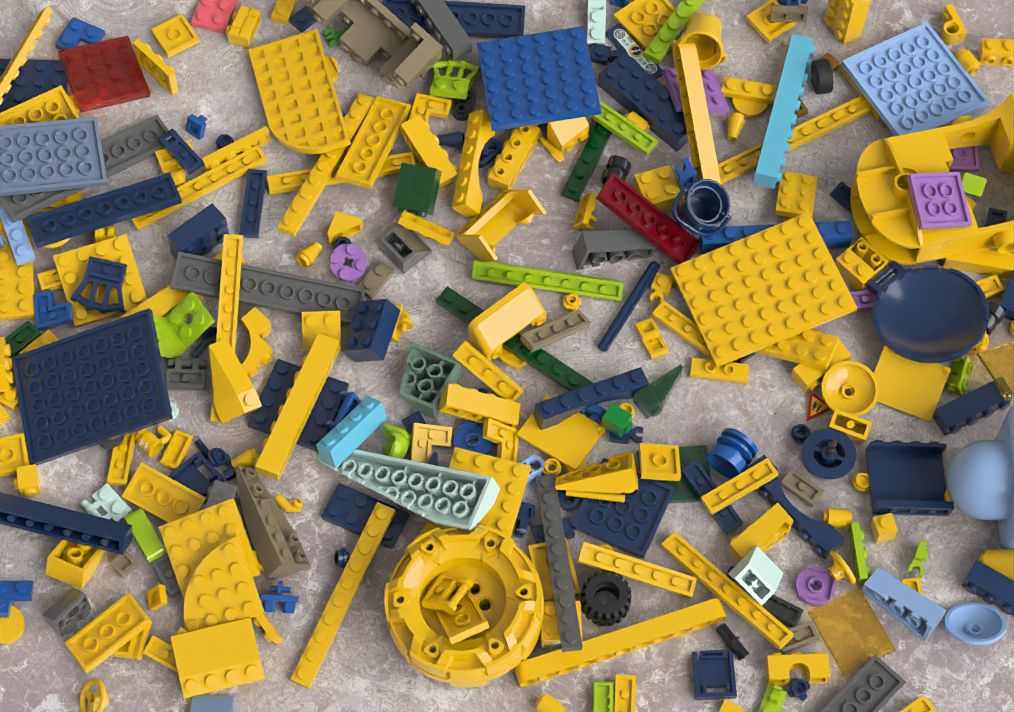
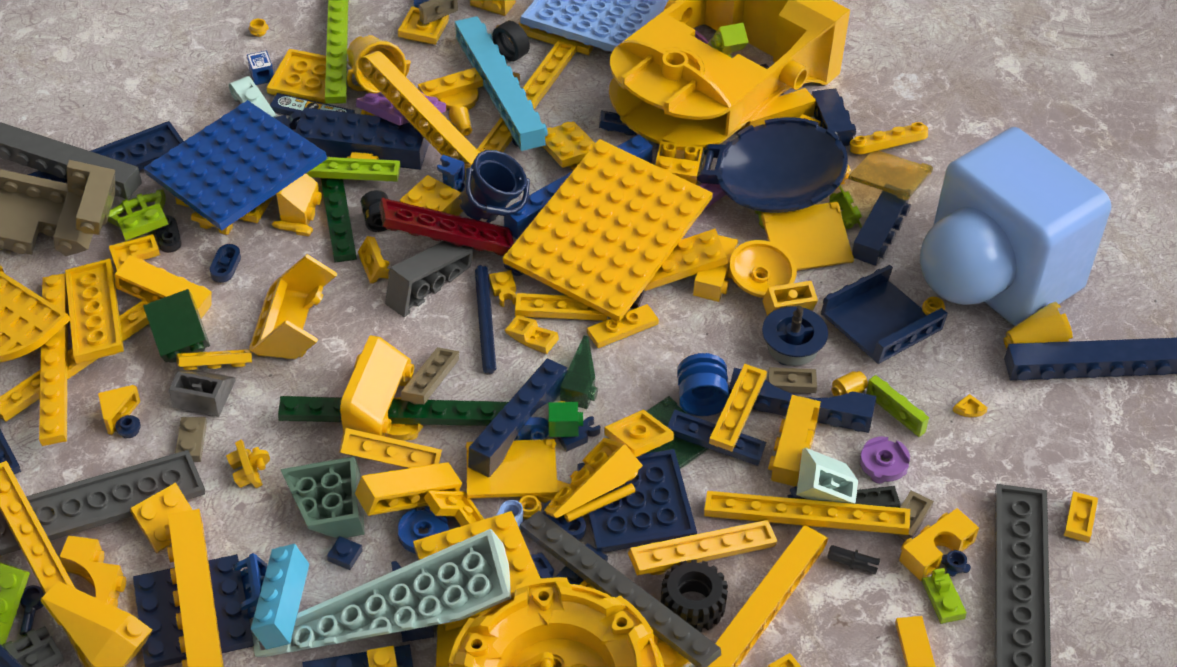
camera: 35 degrees left, 15 degrees down
(308, 255) = (95, 455): yellow cone -> none
(343, 272) = (152, 449): medium lavender plate -> none
(371, 330) = (226, 483): dark blue brick -> none
(397, 441) = (337, 577): lime hair -> none
(426, 436) = (369, 553): yellow plate -> none
(452, 139) = (182, 267): dark blue cone -> none
(467, 194) = (235, 304): yellow arch -> none
(513, 157) = (258, 251): yellow brick -> none
(547, 279) = (394, 333): lime plate -> none
(571, 306) = (423, 346): yellow plate -> none
(714, 672) = (861, 601): dark blue container -> none
(800, 428) = (747, 335): dark blue plate -> none
(816, 406) = (740, 305): piece -> none
(840, 569) = (897, 428): yellow piece -> none
(851, 631) = (953, 479): clear yellow piece -> none
(861, 482) = (841, 343): yellow plate -> none
(883, 528) = (900, 369): yellow brick -> none
(903, 603) = (982, 421): light blue wedge -> none
(920, 554) = (952, 375): lime plate -> none
(939, 200) = (717, 58): medium lavender plate -> none
(975, 623) = (1060, 399): light blue dish -> none

